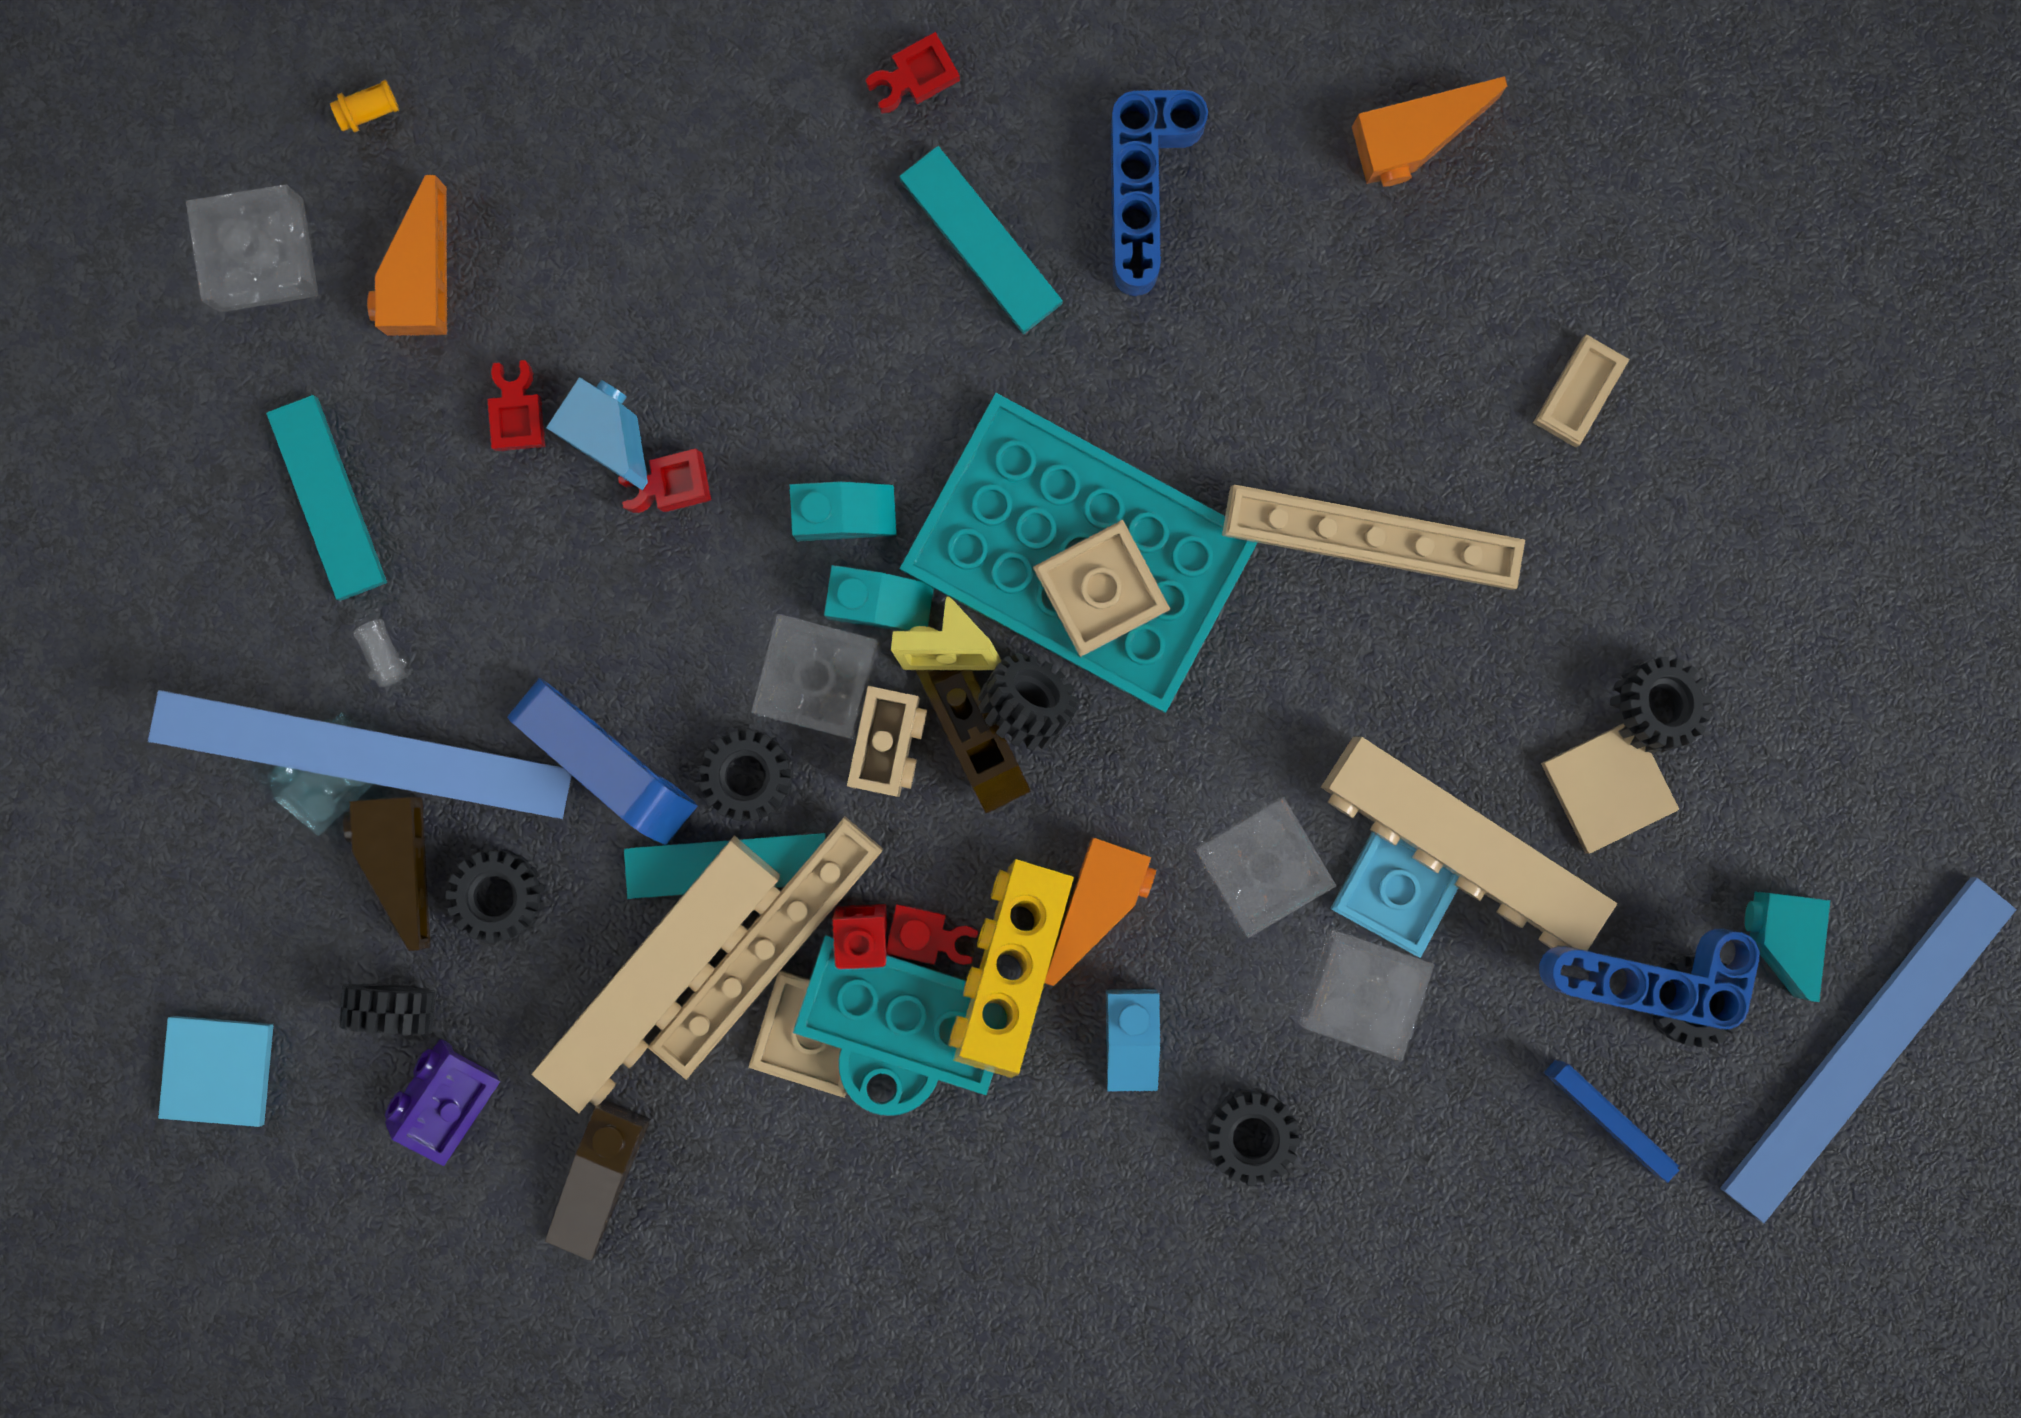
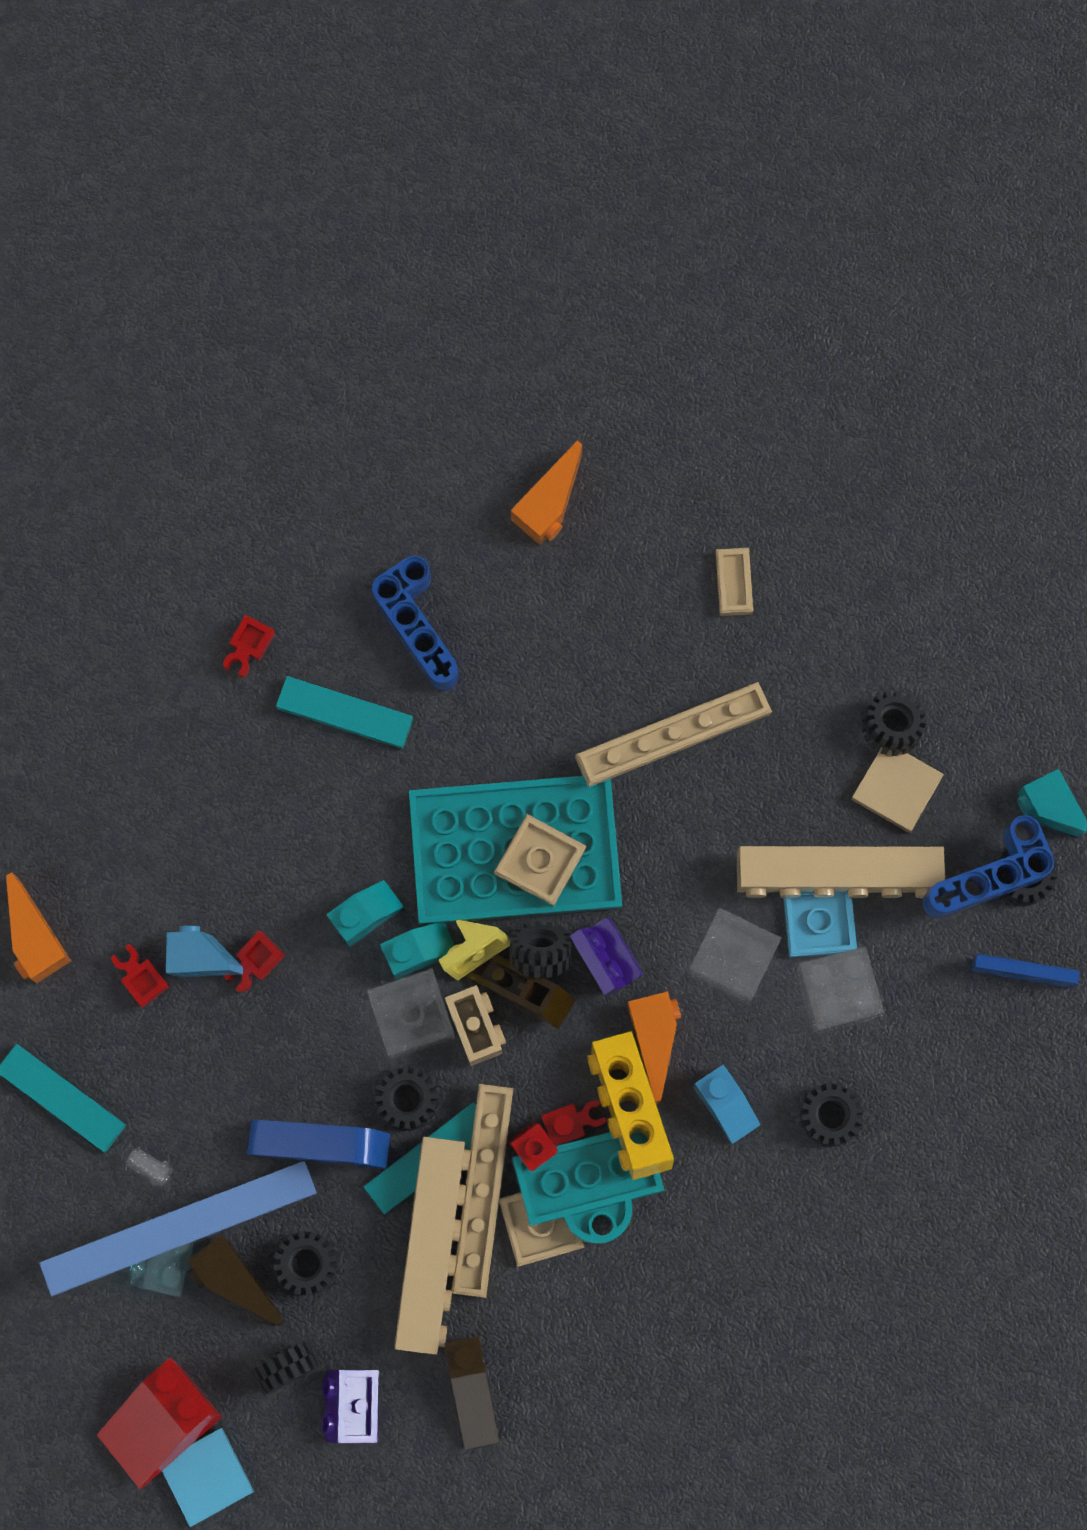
camera: 30 degrees left, 10 degrees down
(198, 971) = (158, 1422): none -> red slope
(1105, 762) = (607, 956): none -> dark purple bracket

